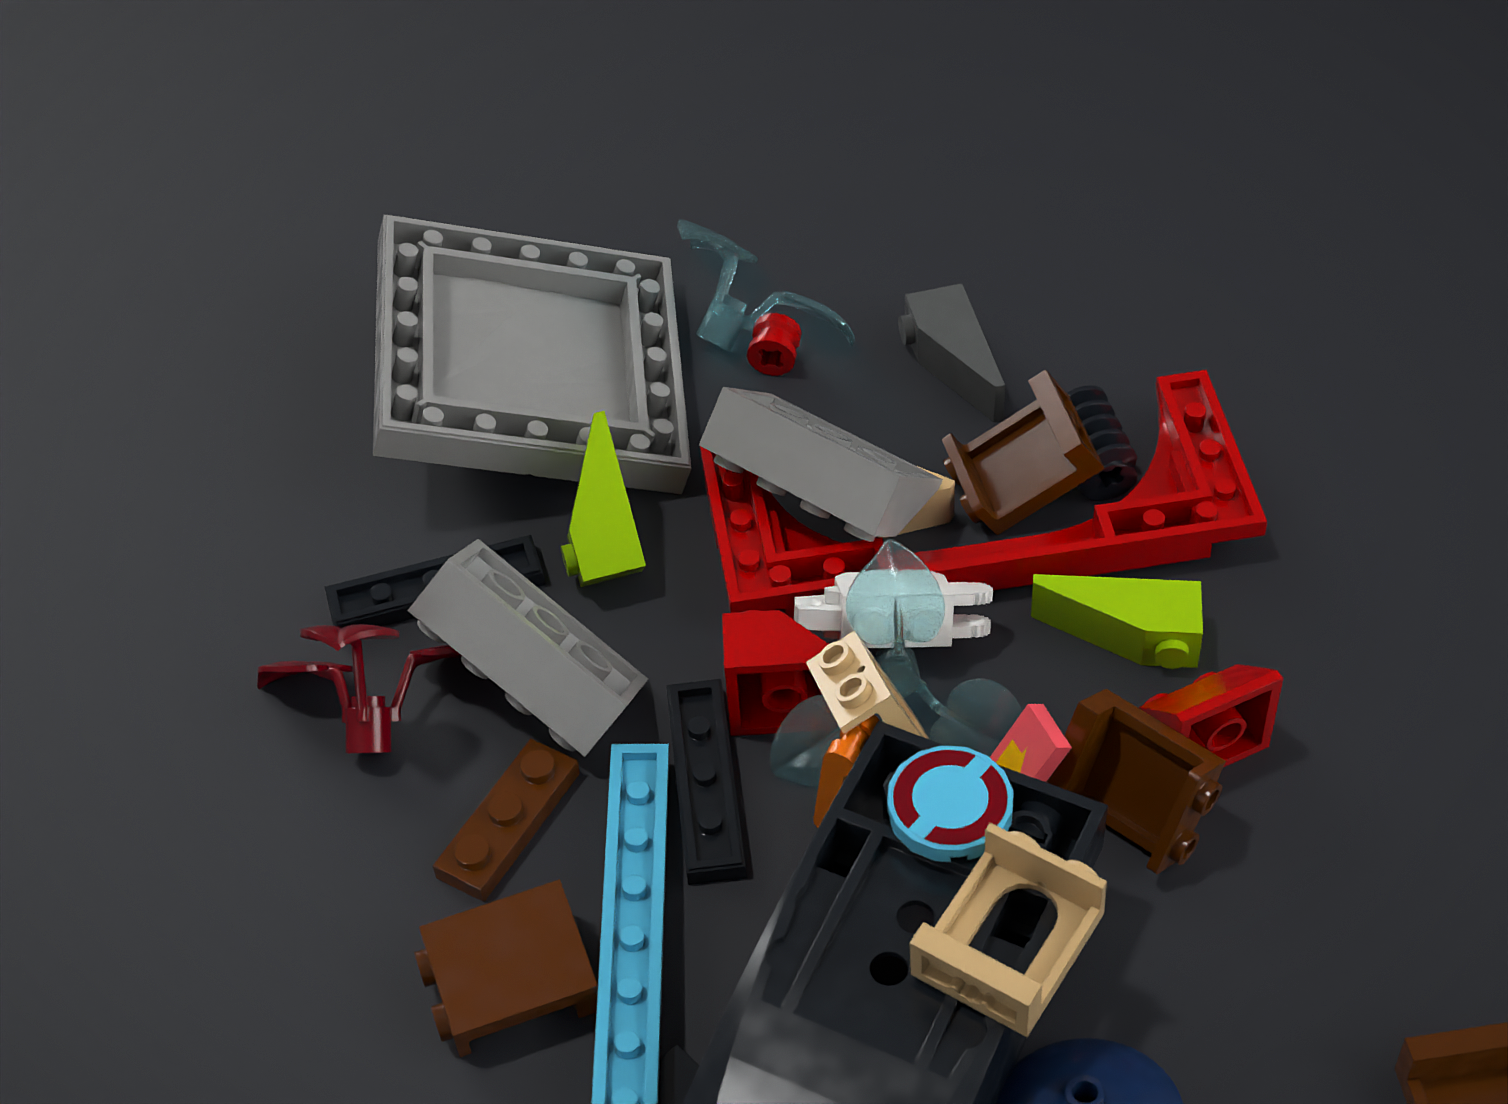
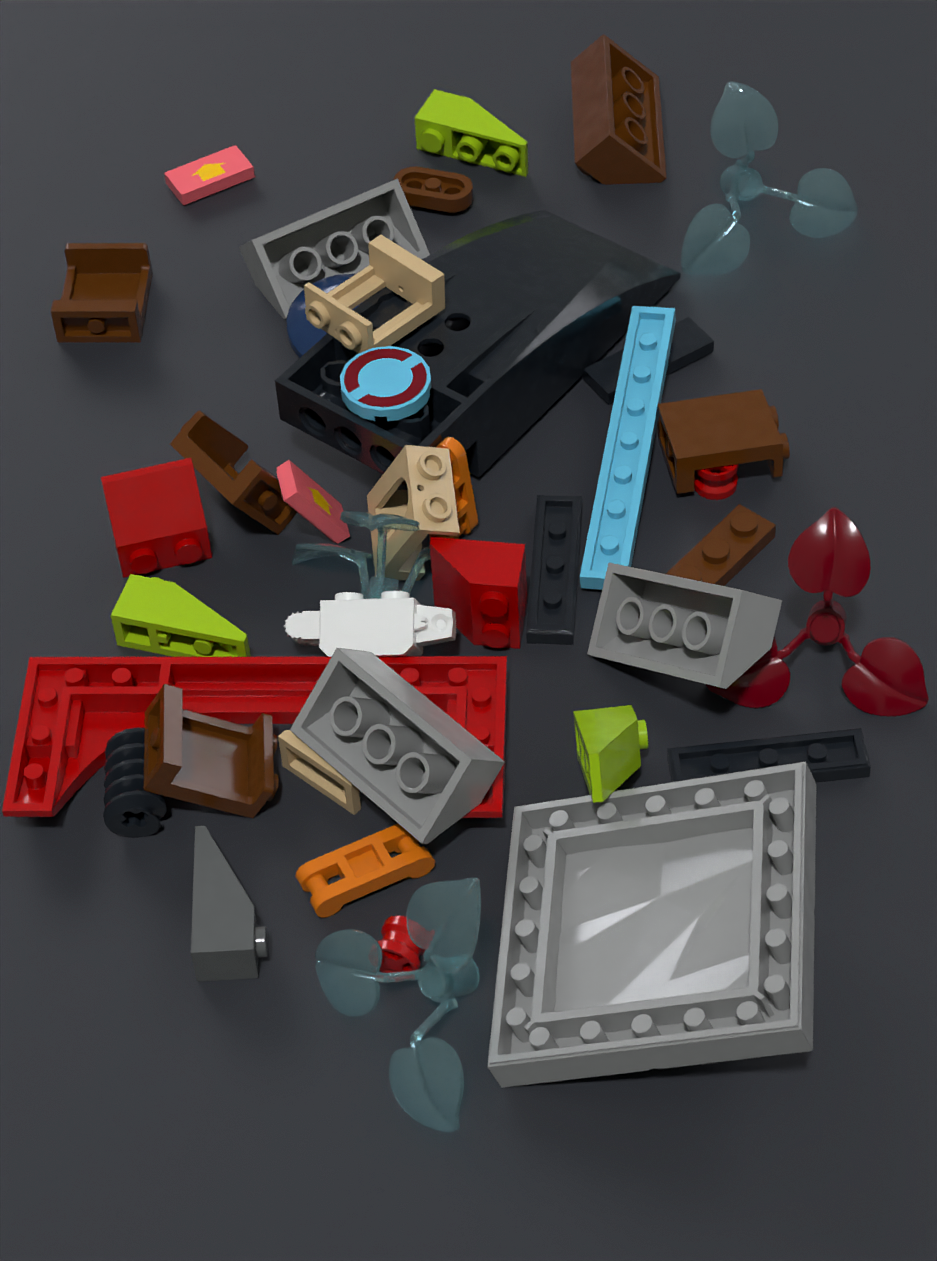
camera: 170 degrees left, 0 degrees up
(850, 400) = (363, 868): none -> orange plate

